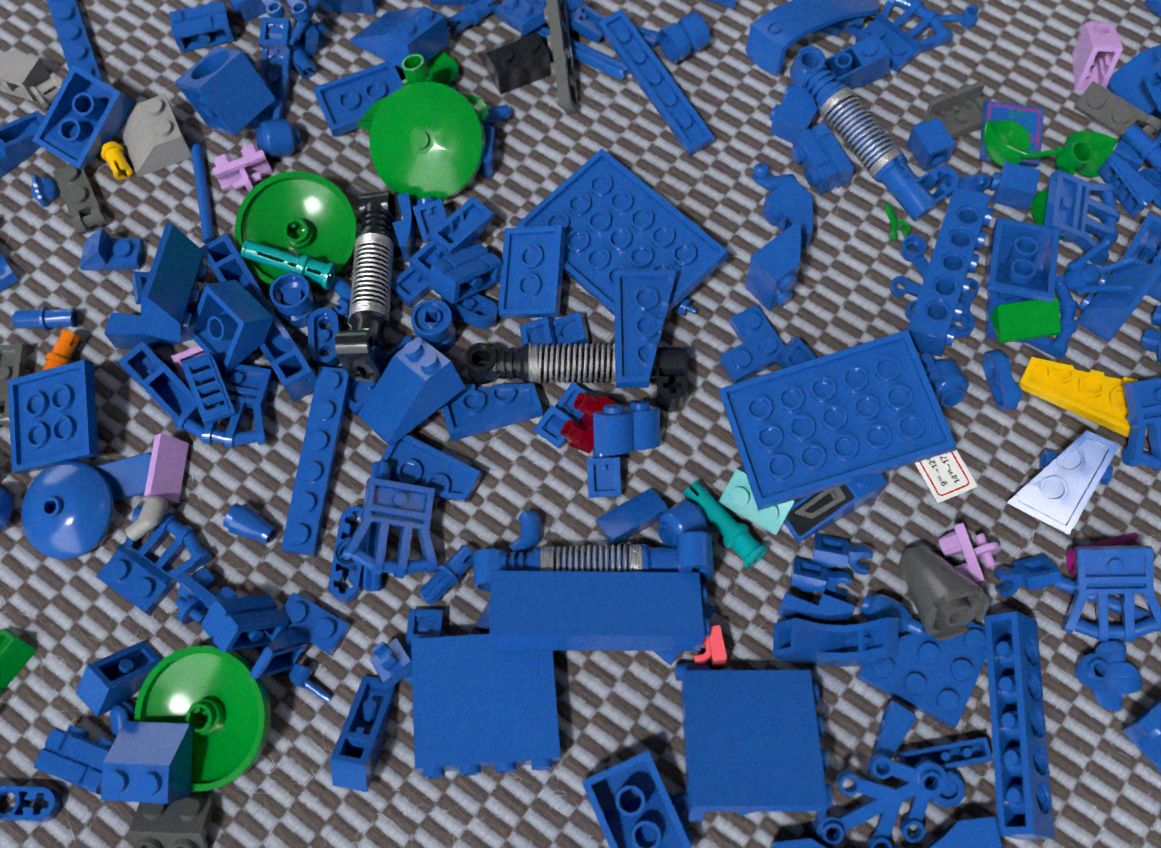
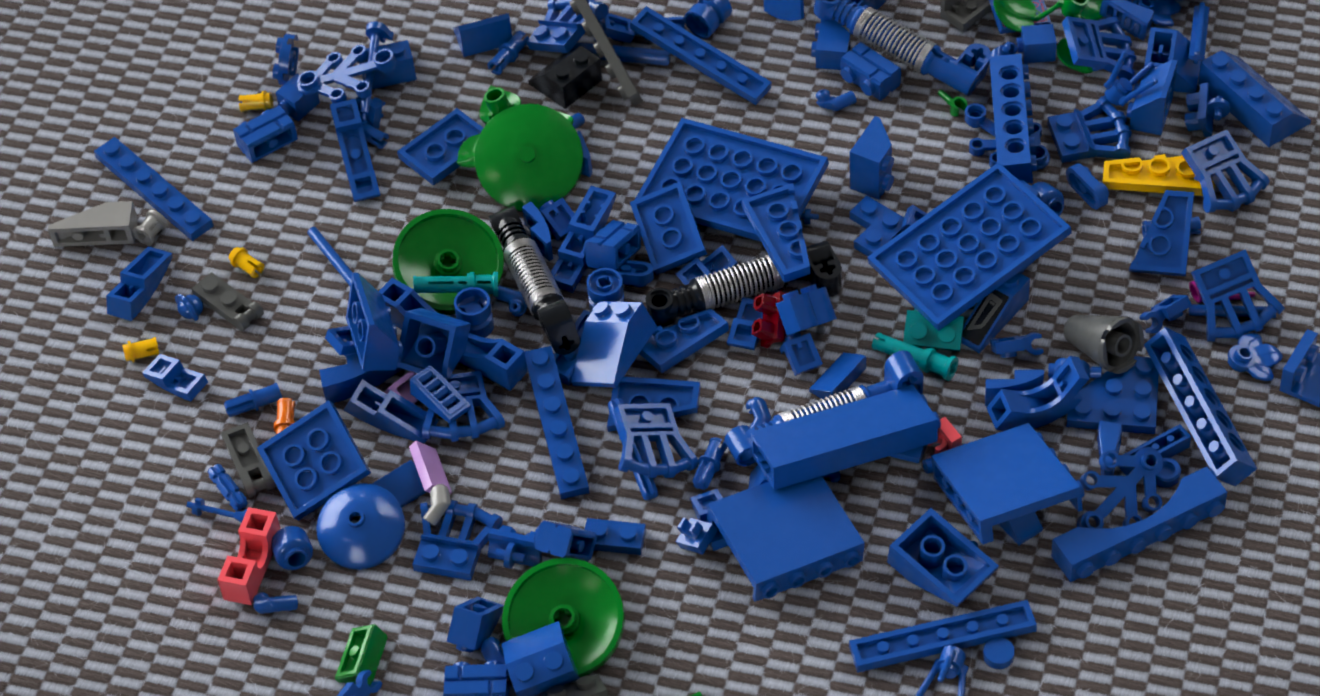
camera: 20 degrees left, 15 degrees down
(83, 118) = (204, 233): blue slope -> none
(109, 253) = (279, 336): blue slope -> none
(154, 136) = (272, 231): light grey slope -> none
(226, 89) = (326, 172): blue brick -> none
(242, 170) = (370, 234): lavender hips -> none
(247, 523) = (523, 485): blue cone -> none
(277, 138) = (386, 199): blue head -> none
(280, 654) = (605, 554): blue slope -> none
(300, 677) = (625, 575): blue hand -> none
(323, 339) = (516, 333): blue plate -> none
(337, 576) = (617, 489): blue beam -> none
(362, 735) = (699, 591): blue slope -> none
(403, 34) = (459, 84): blue slope -> none
(681, 519) = (874, 363): blue head -> none
(788, 205) = (858, 113): blue slope -> none
(815, 577) = (1002, 367): blue plate -> none
(930, 144) = (955, 33): blue brick -> none
(946, 476) = (1069, 264): white sticker -> none
(959, 542) = (1107, 306): lavender hips -> none
(1022, 259) = (1065, 90): blue slope -> none
(1026, 320) = (1088, 134): green slope -> none

